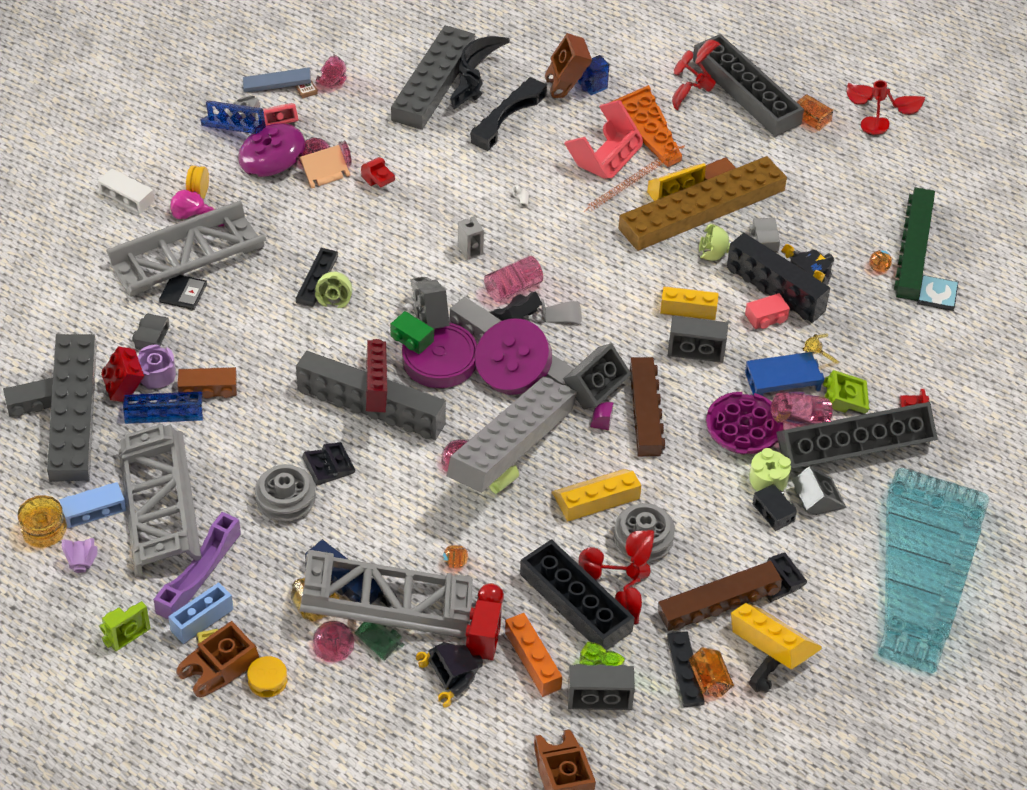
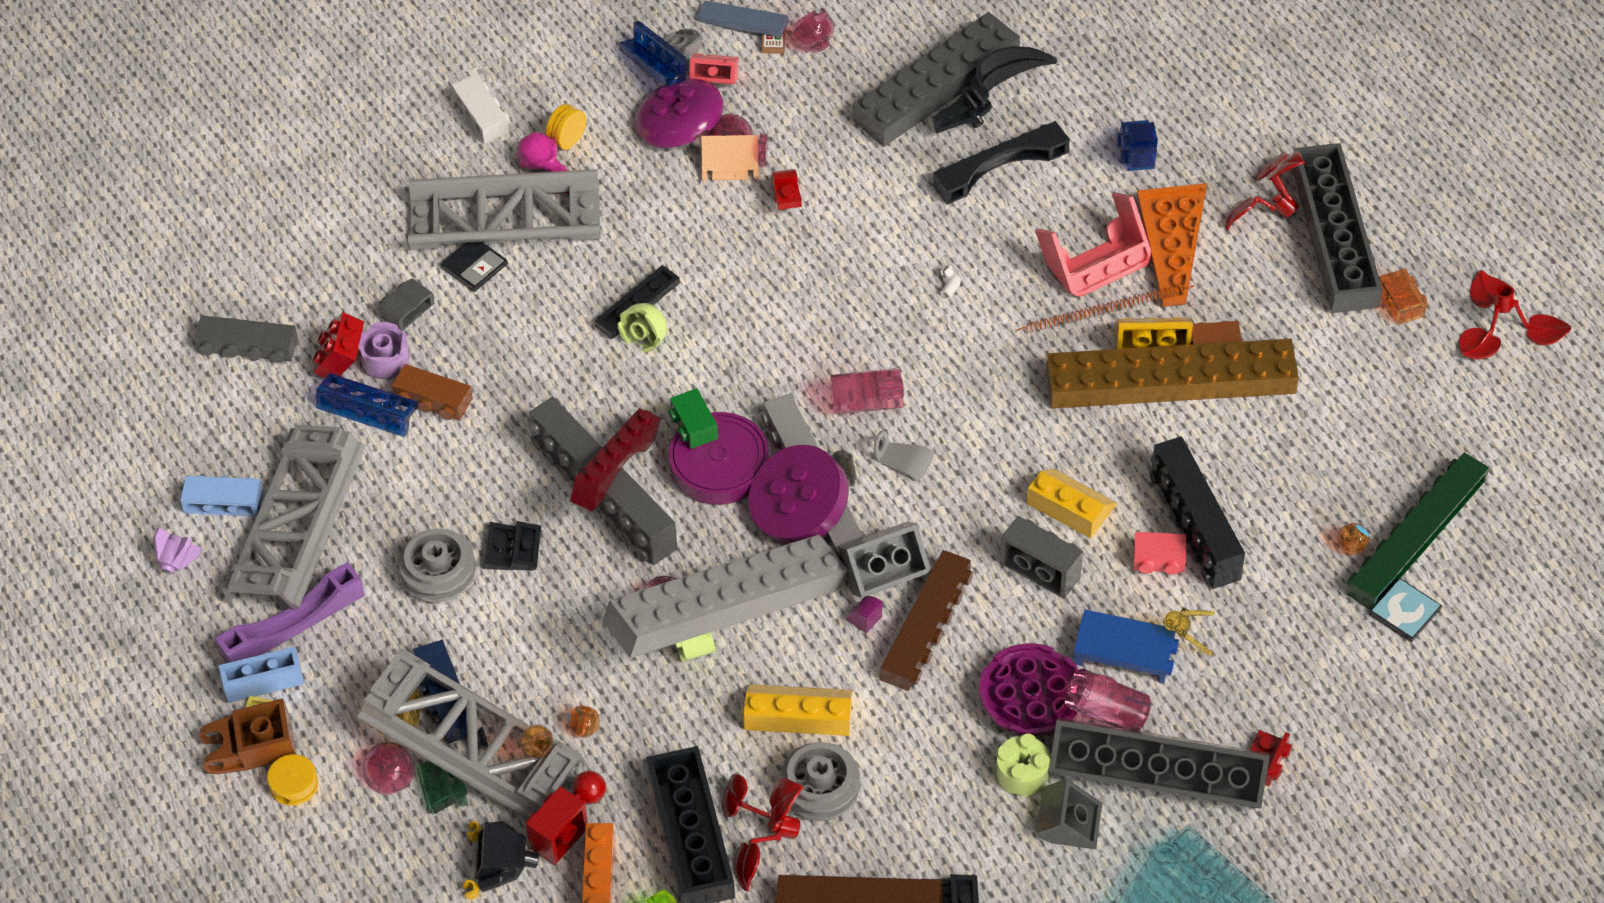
camera: 30 degrees right, 5 degrees up
(42, 521) = (154, 495): clear yellow wheel -> none
(72, 408) = (259, 368): dark grey brick -> none
(124, 627) = (169, 658): lime plate -> none
(430, 302) = (735, 387): dark grey brick -> none
(439, 577) = (536, 741): none -> clear orange piece
(470, 234) = (844, 313): light grey brick -> none
(519, 307) = (854, 432): black brick -> none
(567, 64) = (1106, 121): dark orange brick -> none
(716, 241) = (1148, 433): yellowish green cylinder -> none
(766, 232) = (1225, 446): light grey brick -> none
(774, 507) = (1001, 813): black hinge -> none
(811, 262) = (1255, 510): black torso -> none
(846, 392) = (1190, 699): lime plate -> none

